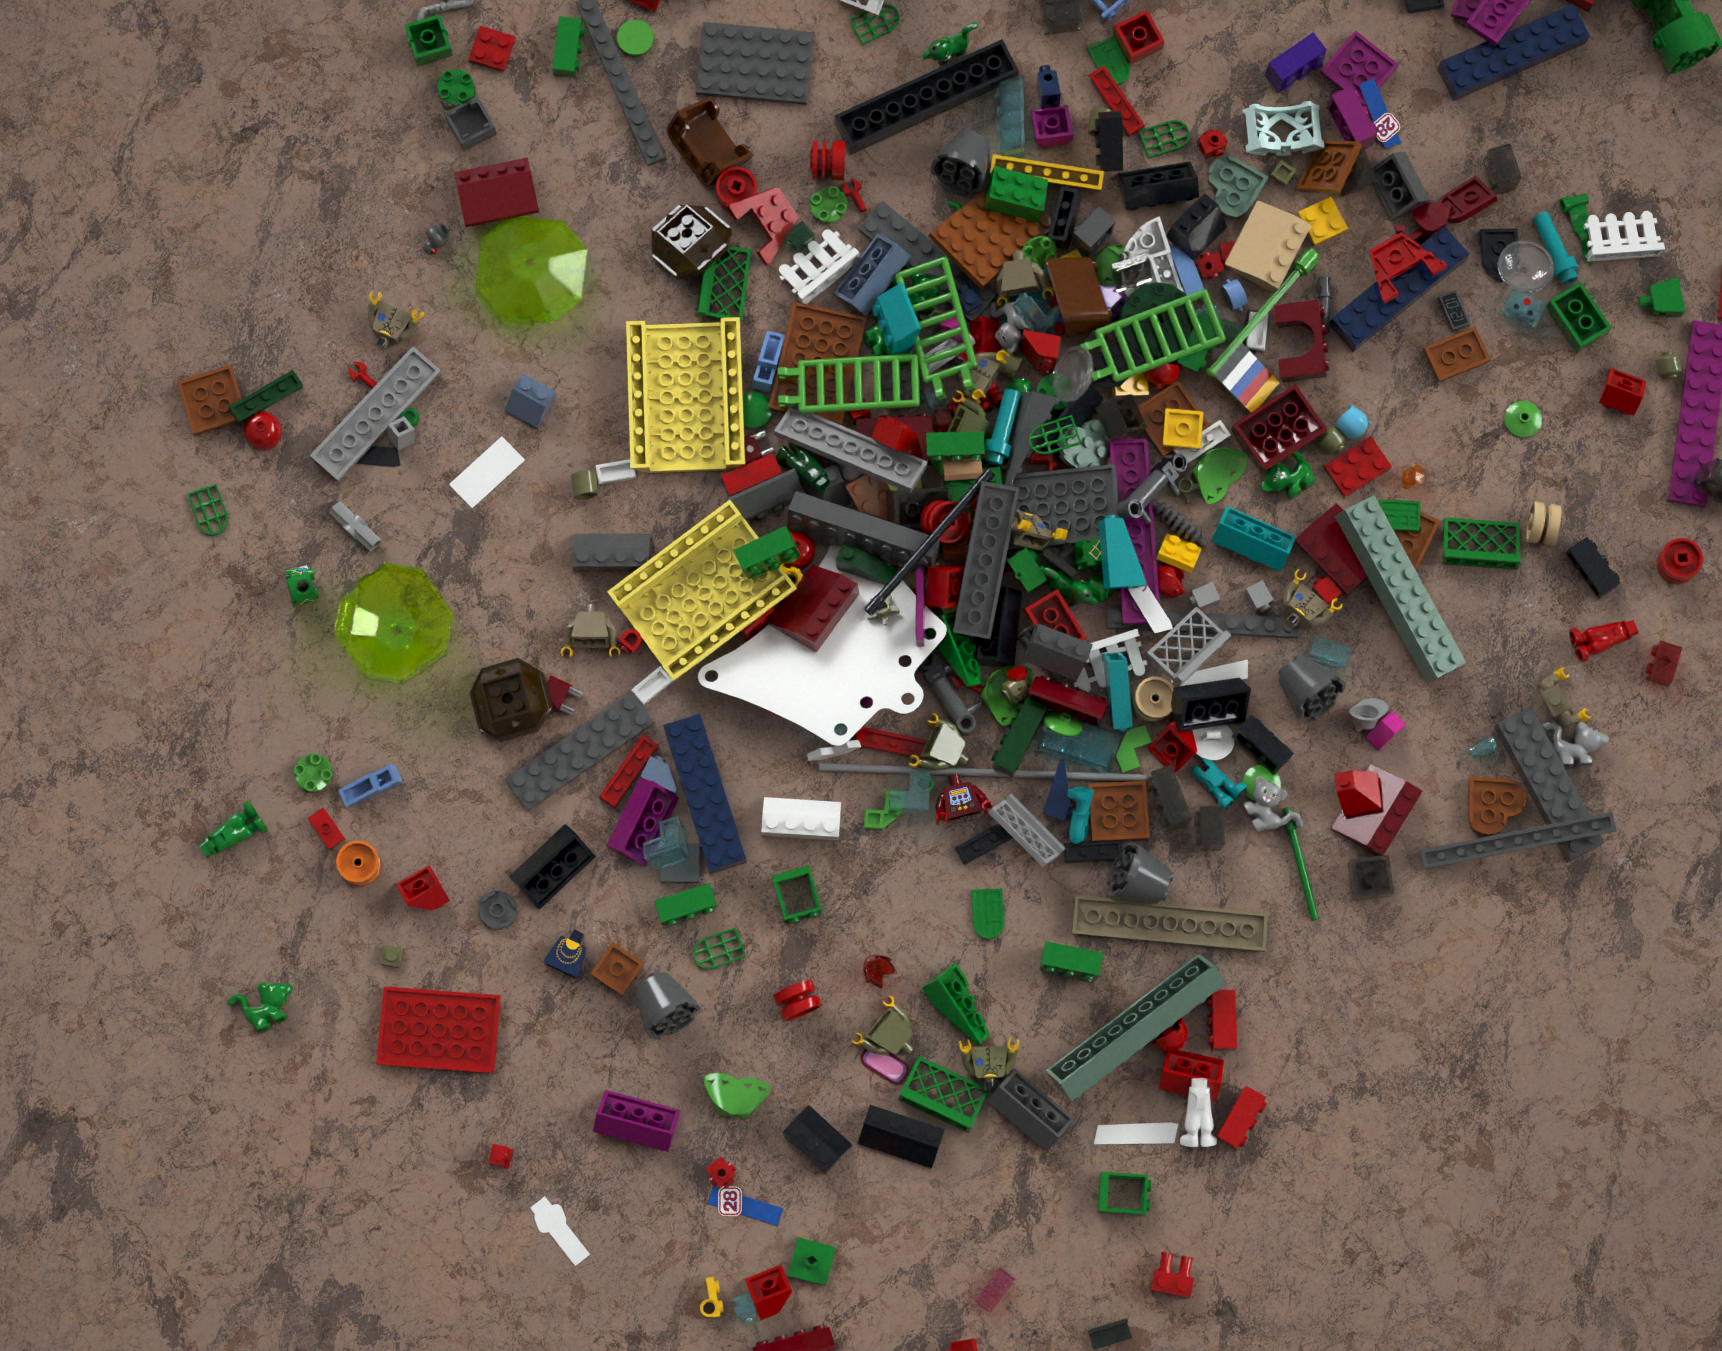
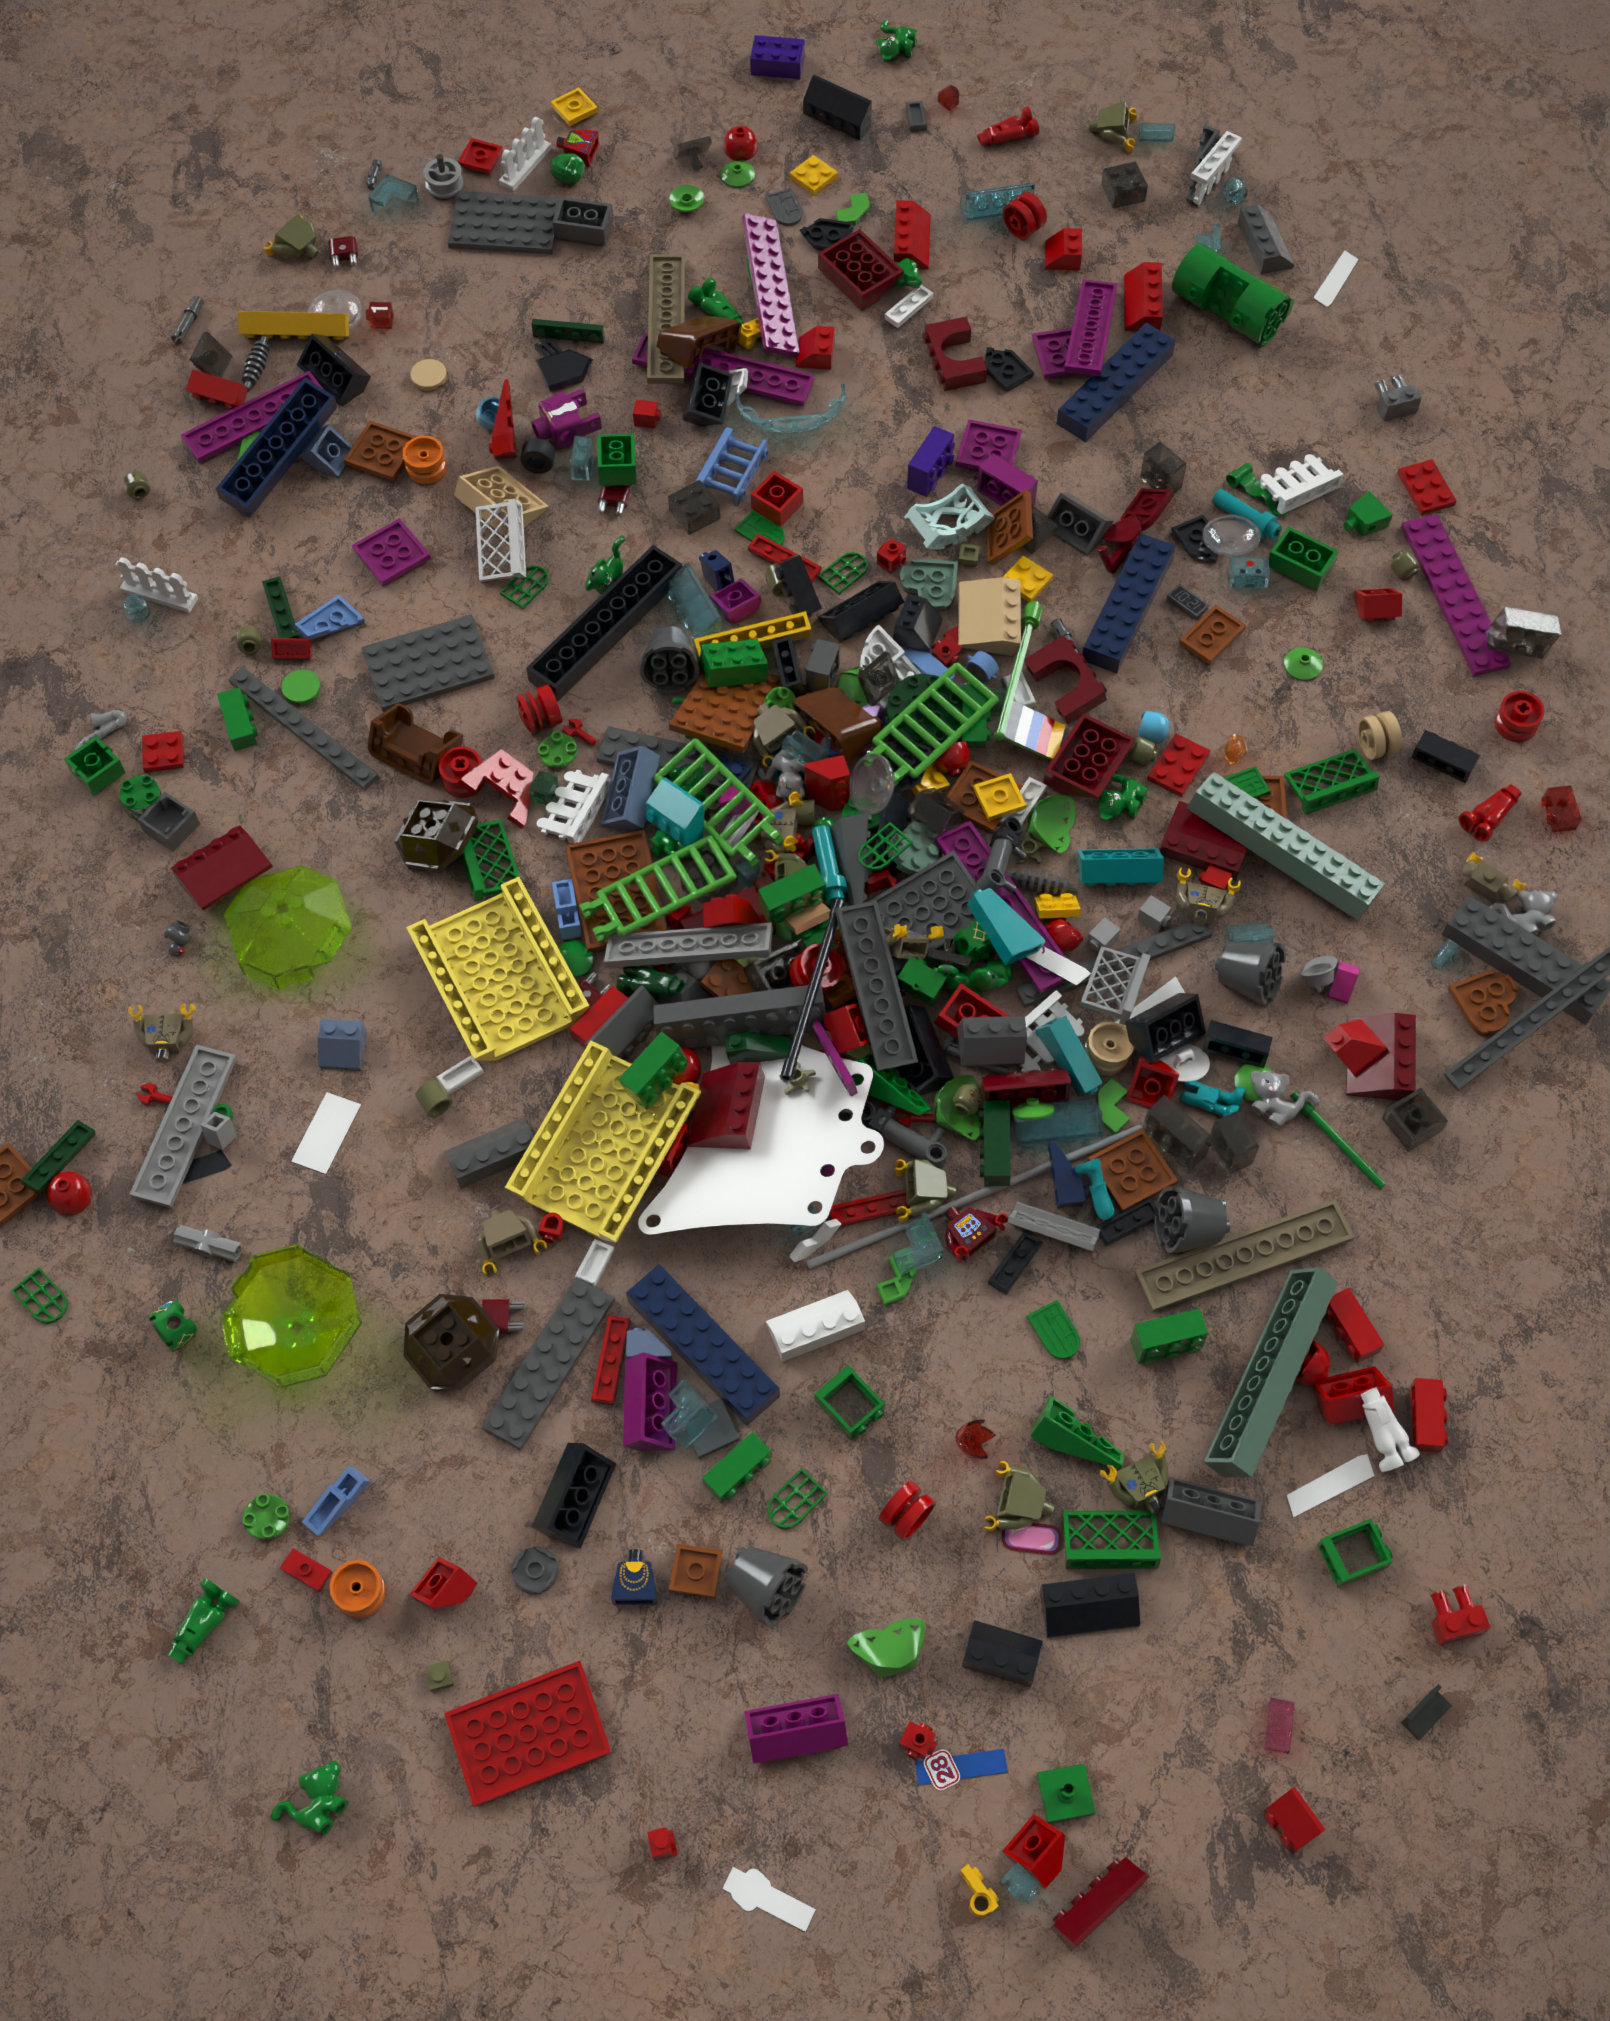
camera: 20 degrees left, 15 degrees down
(1016, 674) = (961, 1083): red tile -> none
(1384, 121) = (1044, 486): blue sticker -> none
(1395, 258) = (1115, 569): red wing -> none

